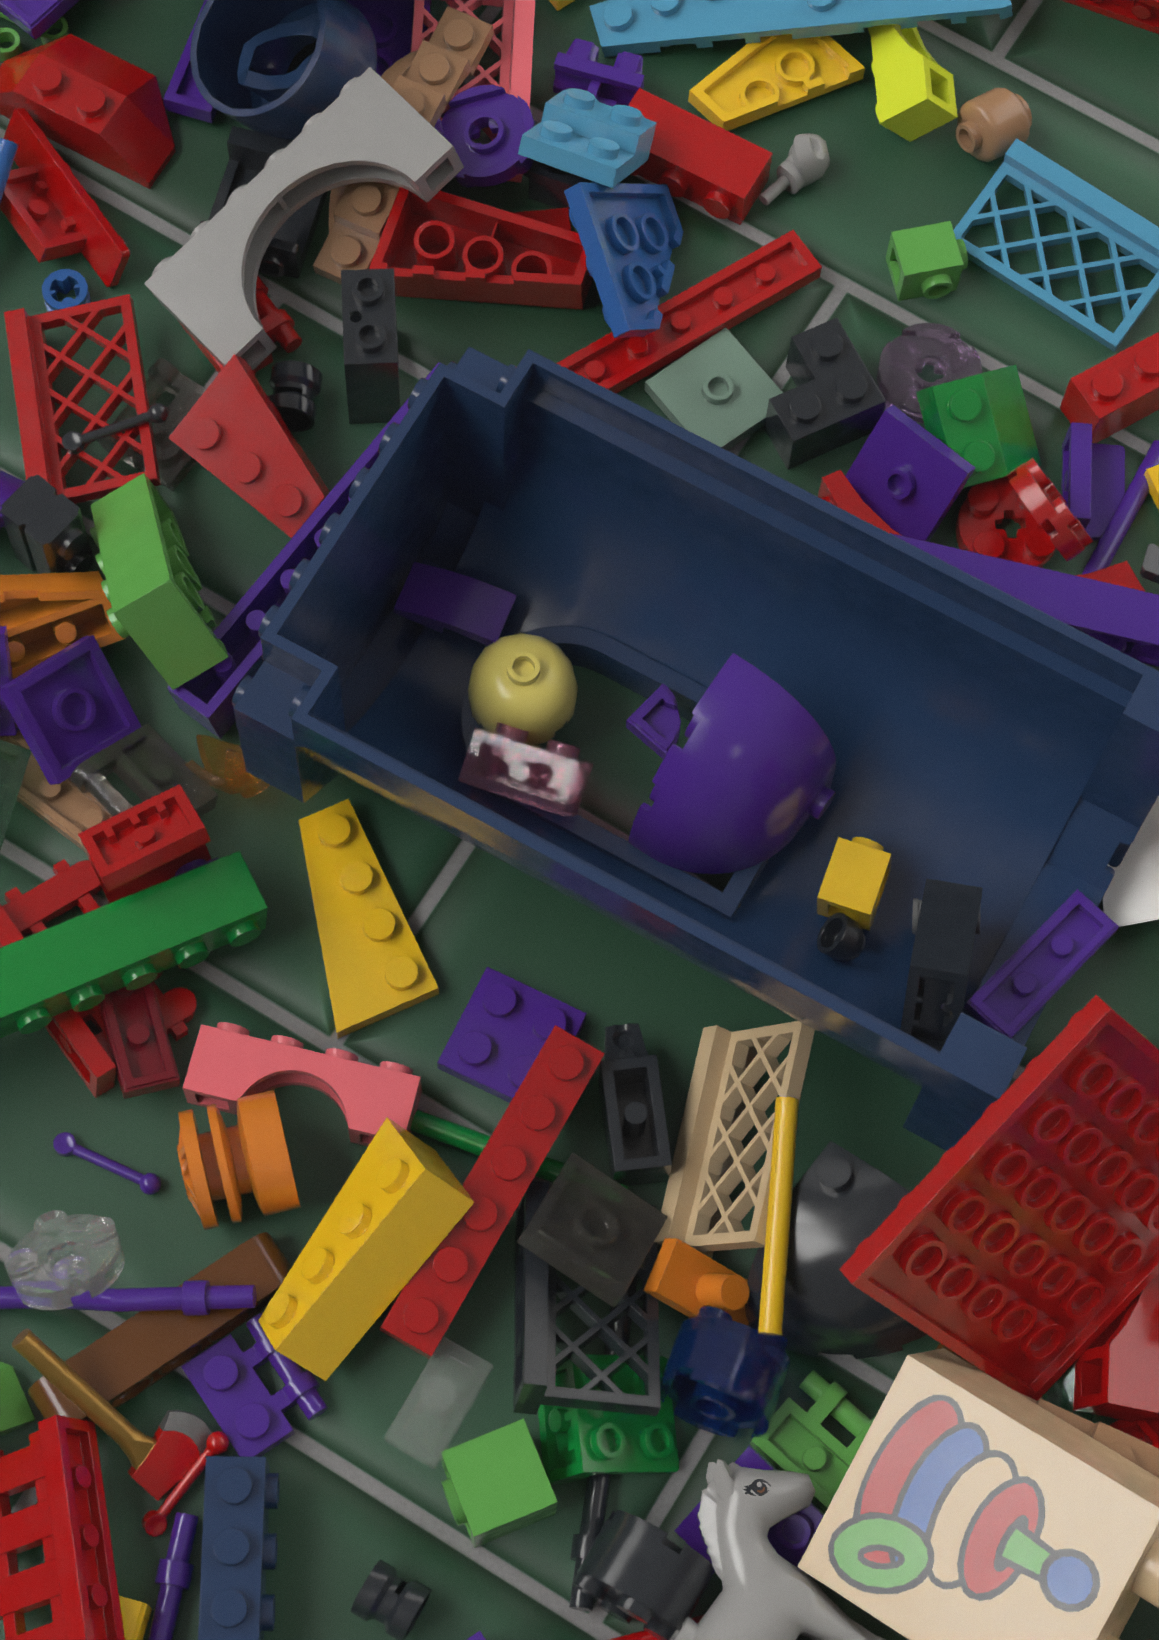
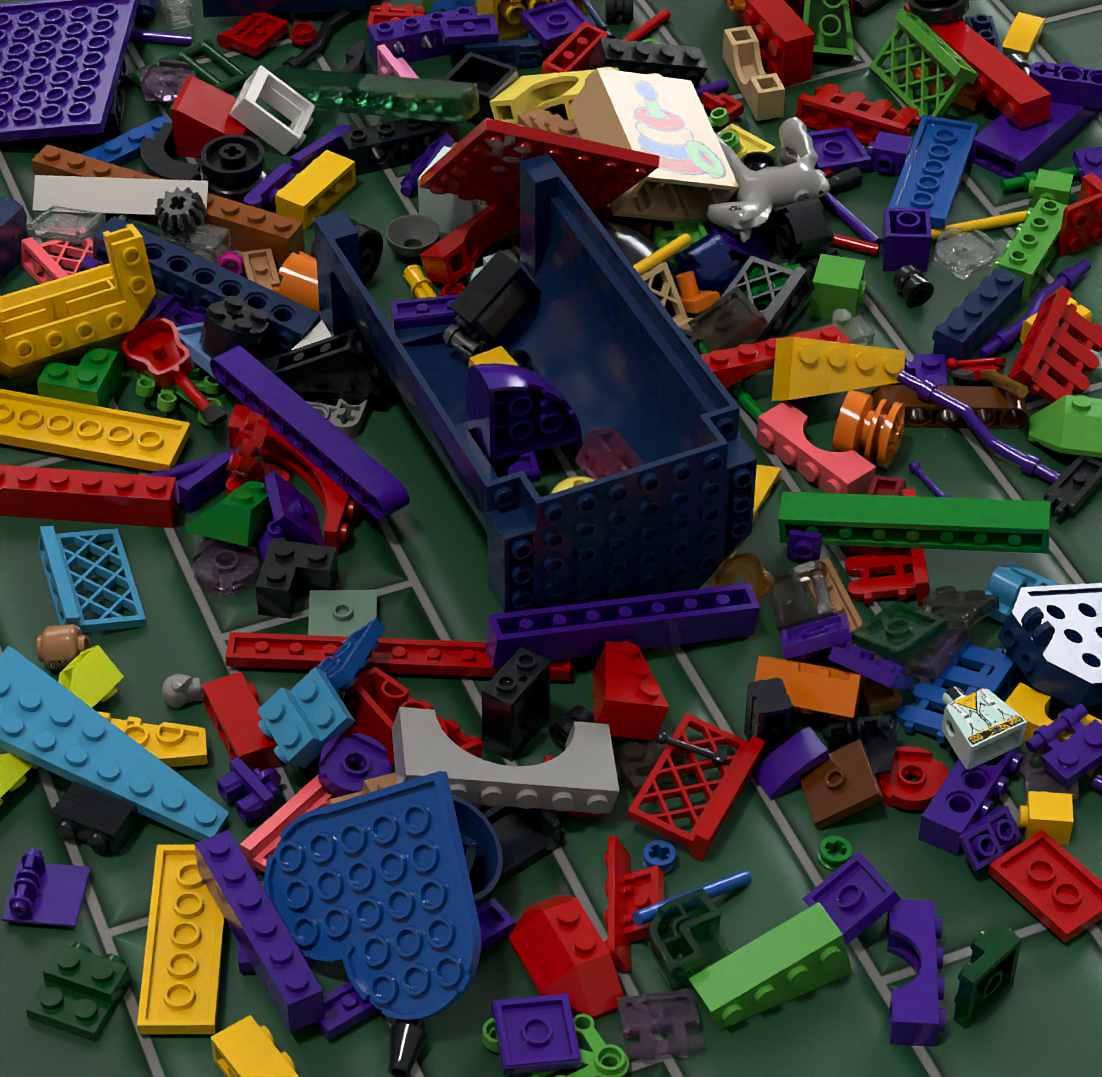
camera: 140 degrees left, 25 degrees down
(65, 1259) = (976, 461): clear plate -> none
(145, 843) = (825, 534): red bracket -> none
(153, 582) = (730, 654): bright green wedge -> none
(926, 261) = (171, 608): bright green brick -> none

